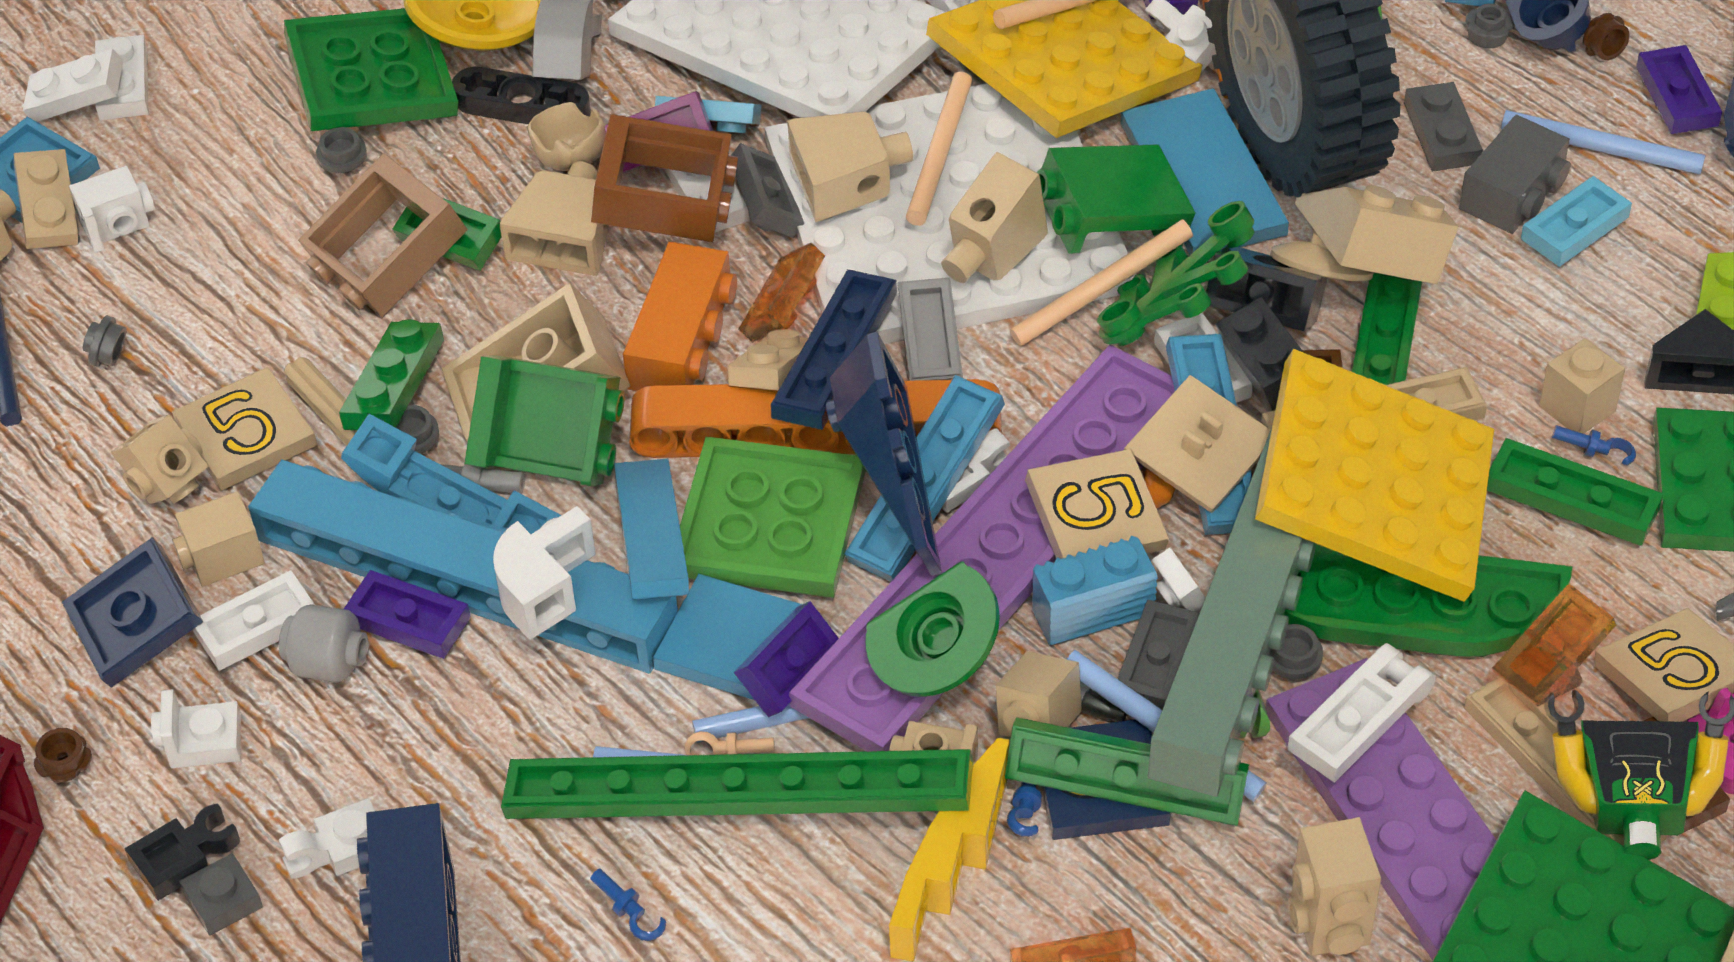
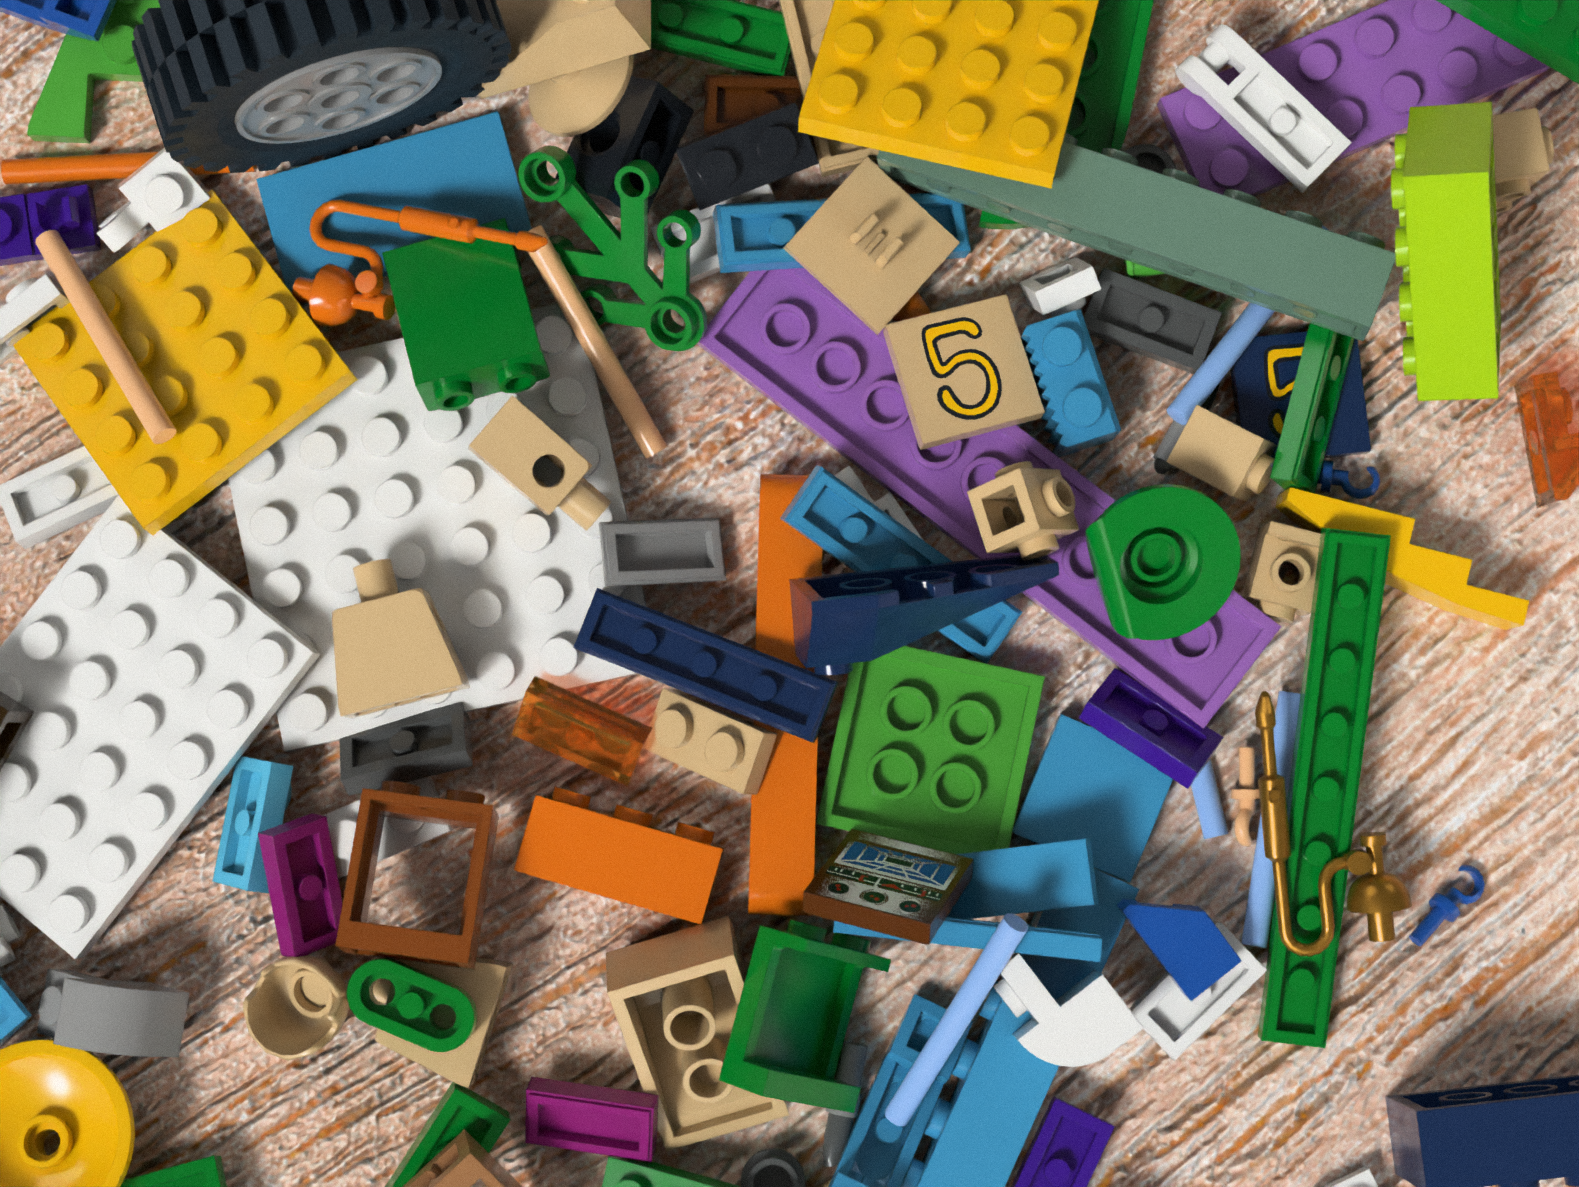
camera: 90 degrees left, 35 degrees up
(470, 311) = (591, 1119): none -> magenta tile
(488, 93) = (199, 1122): black beam -> none
(537, 495) = (956, 1019): none -> light blue bar
(556, 708) = (1177, 1021): none -> white plate
(564, 177) = (413, 1005): none -> green plate
(598, 670) = (1183, 943): none -> blue tile
(608, 506) = (977, 933): none -> dark azure tile
(637, 814) = (1371, 893): none -> pearl gold piece
(650, 447) = (888, 886): none -> tile
(939, 149) = (359, 526): light nougat bar -> none
(973, 529) = (1024, 510): none -> tan brick
(1125, 122) = (338, 295): none -> orange piece
(1229, 804) = (1448, 251): none -> lime brick

